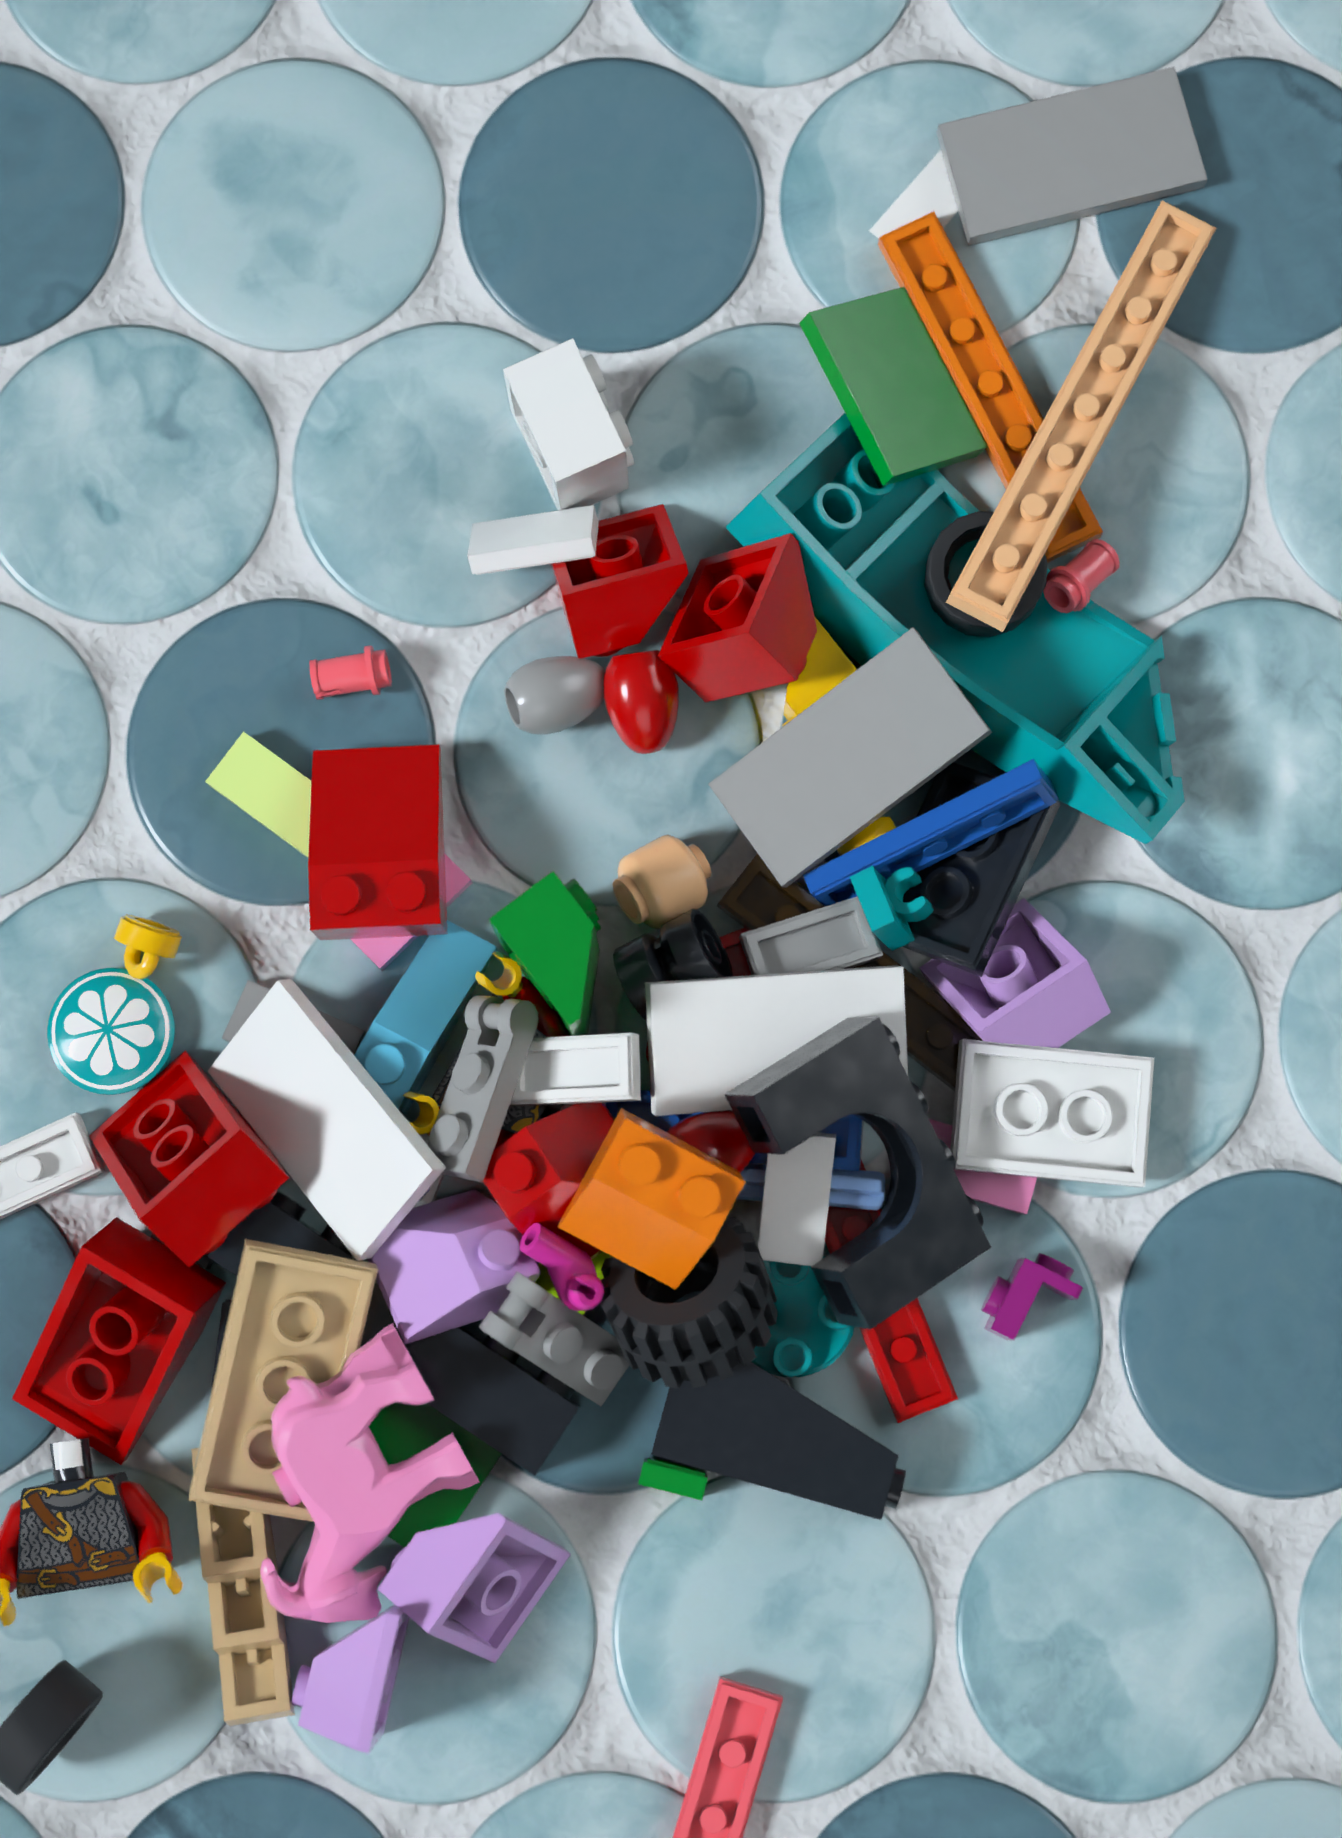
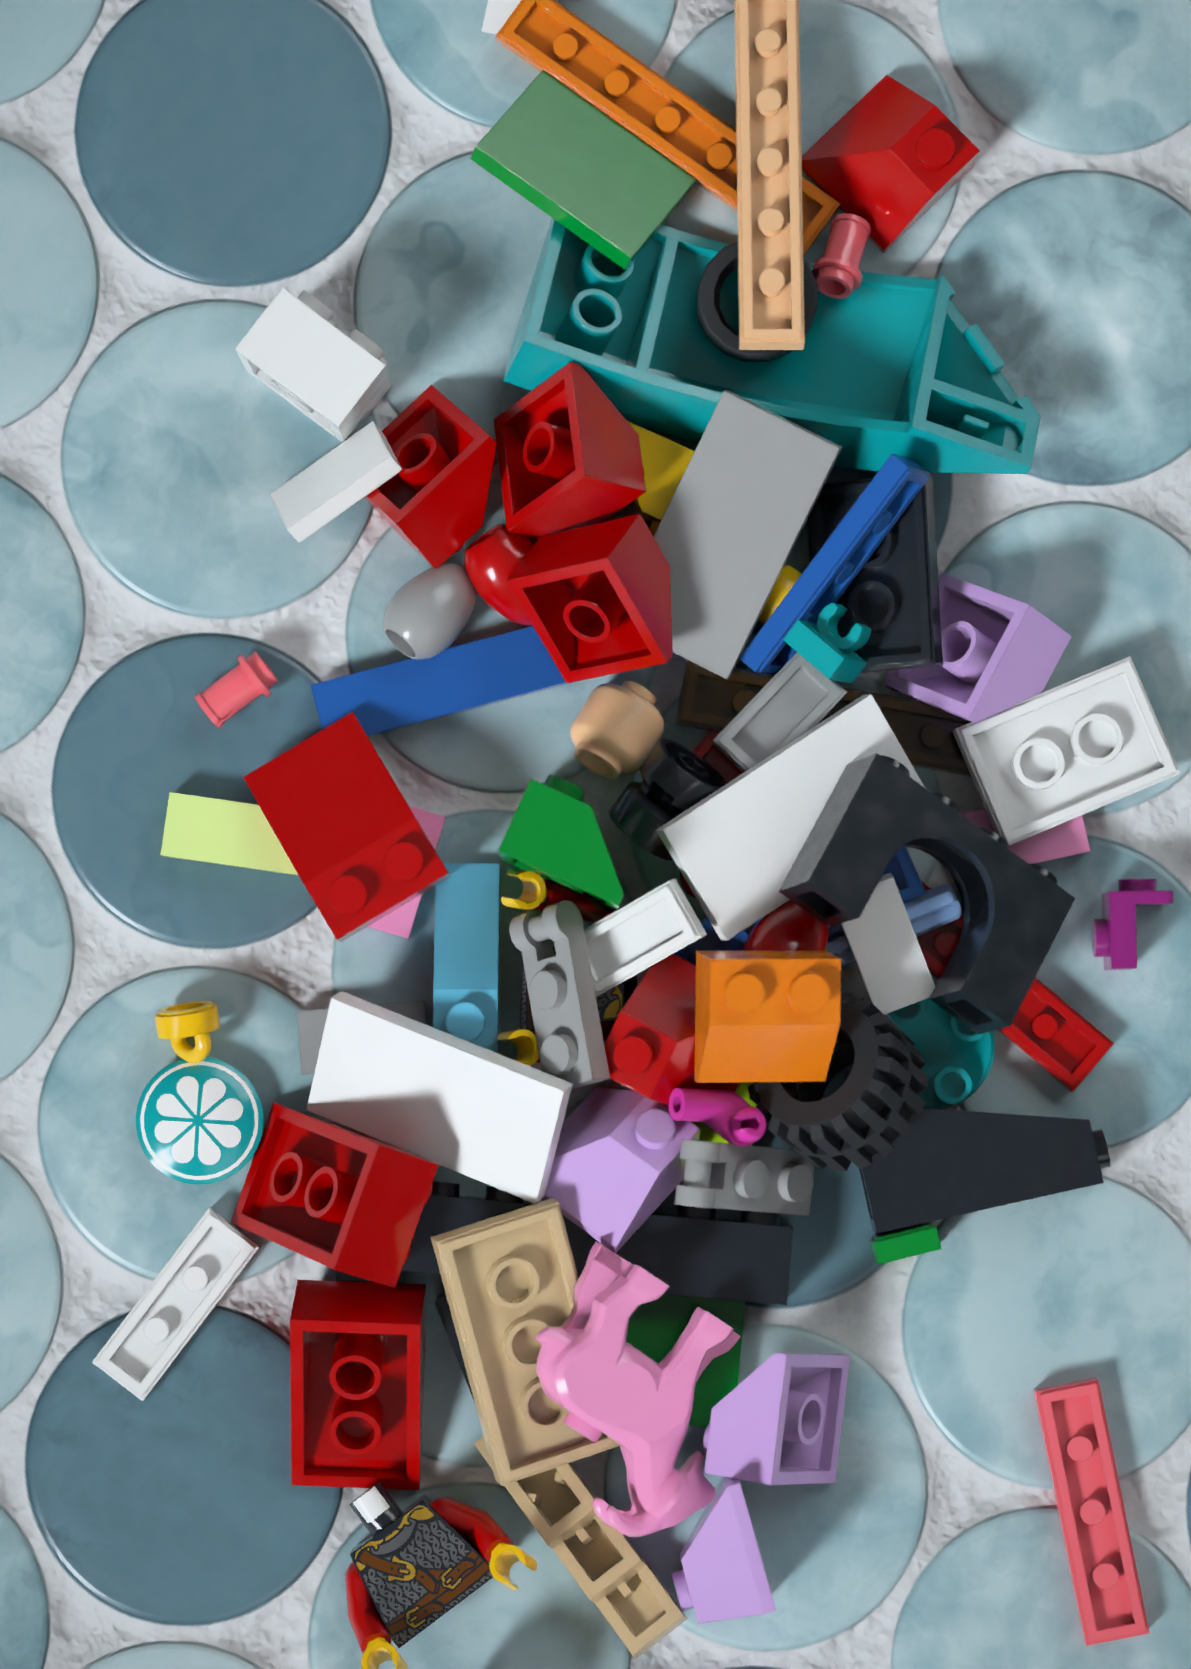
camera: 30 degrees left, 5 degrees up
(575, 773) = (441, 685): none -> blue tile
(705, 754) = (598, 598): none -> red slope
(1168, 518) = (890, 159): none -> red slope

